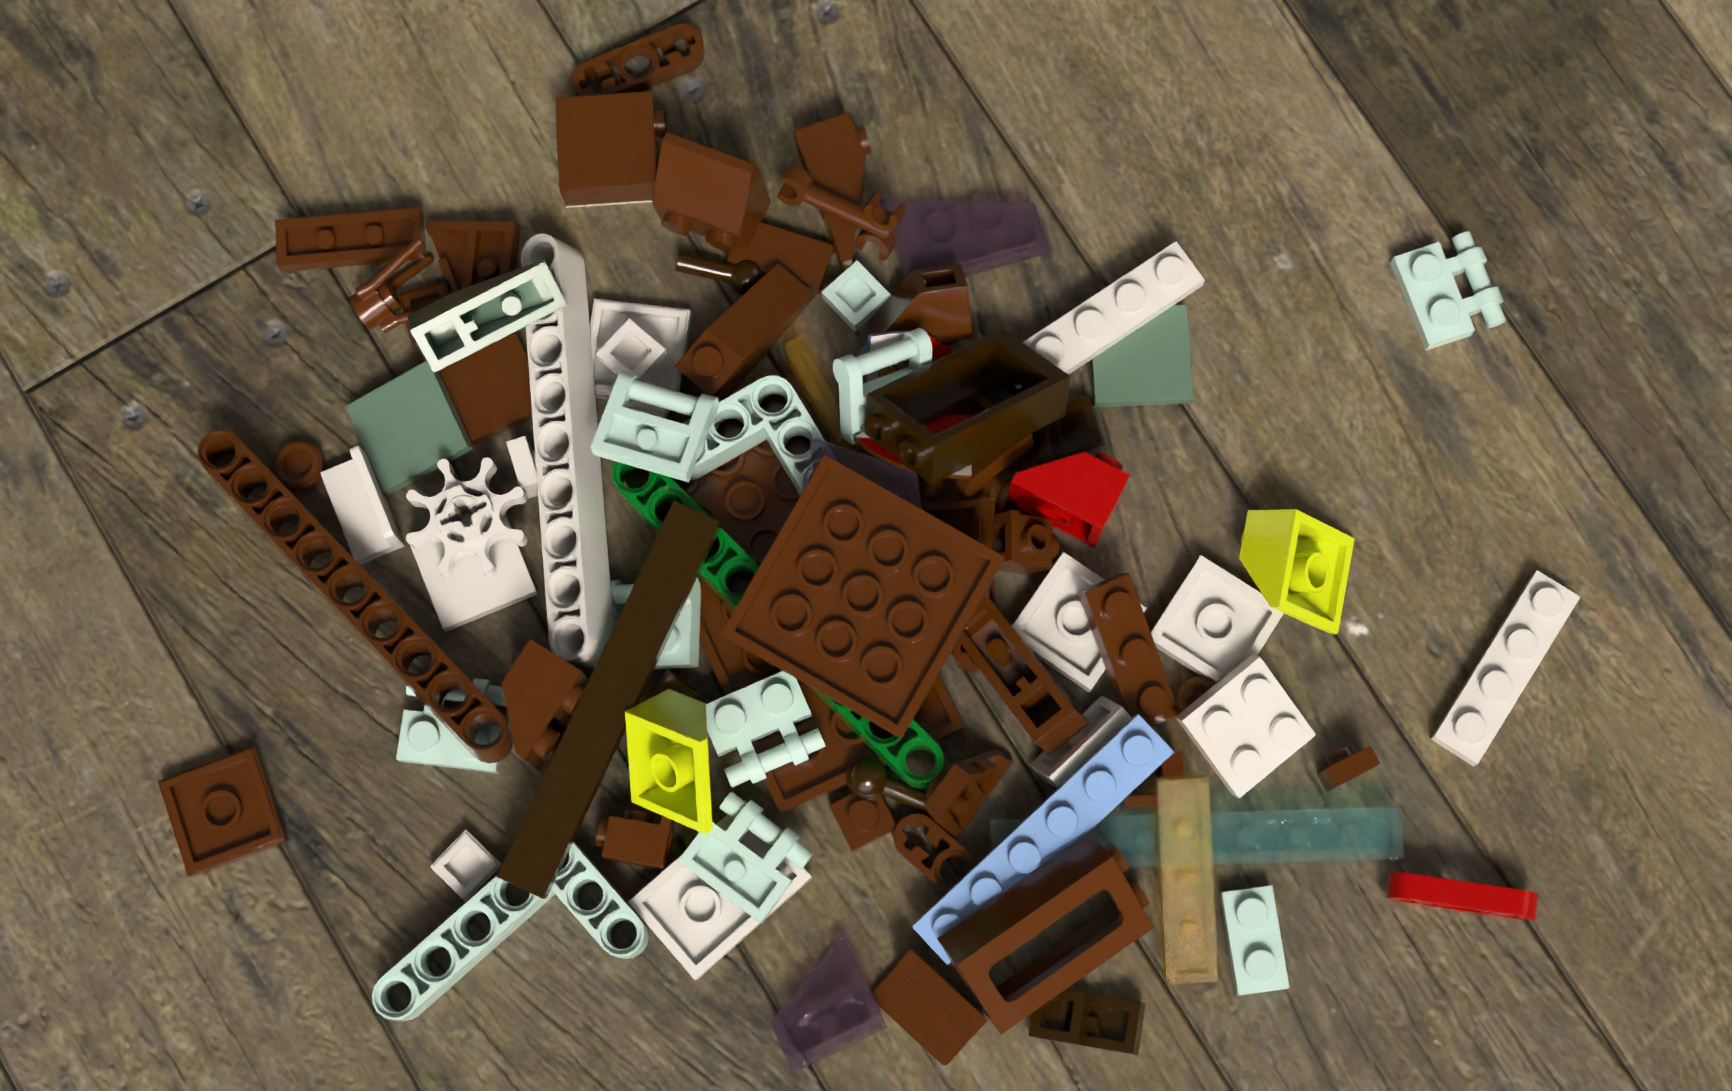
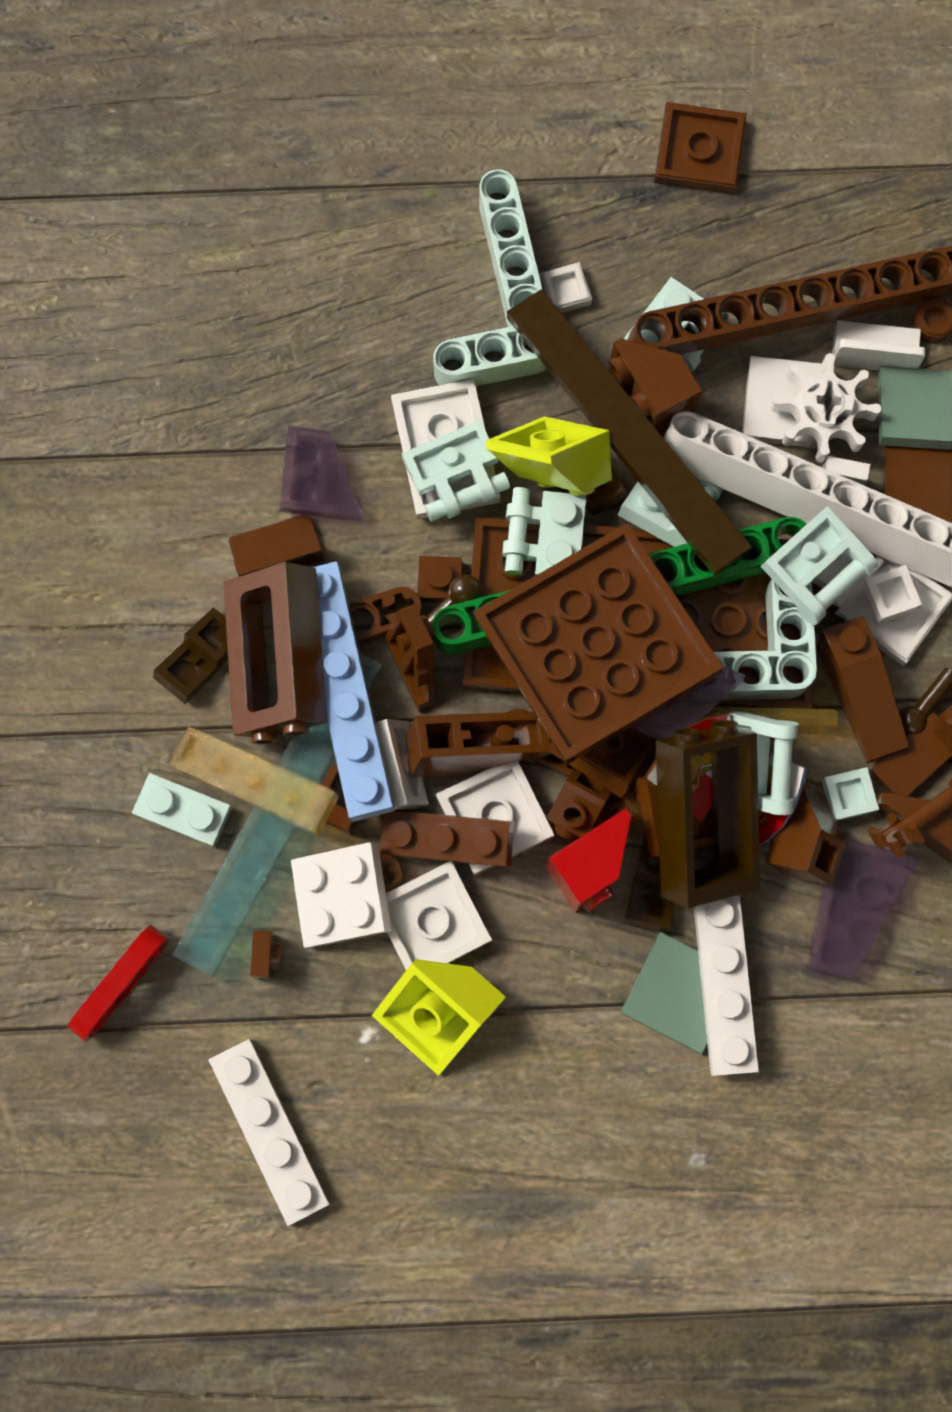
camera: 115 degrees right, 0 degrees up
(636, 839) = (514, 405): reddish brown brick -> none
(1434, 296) = (602, 1267): light aqua plate -> none

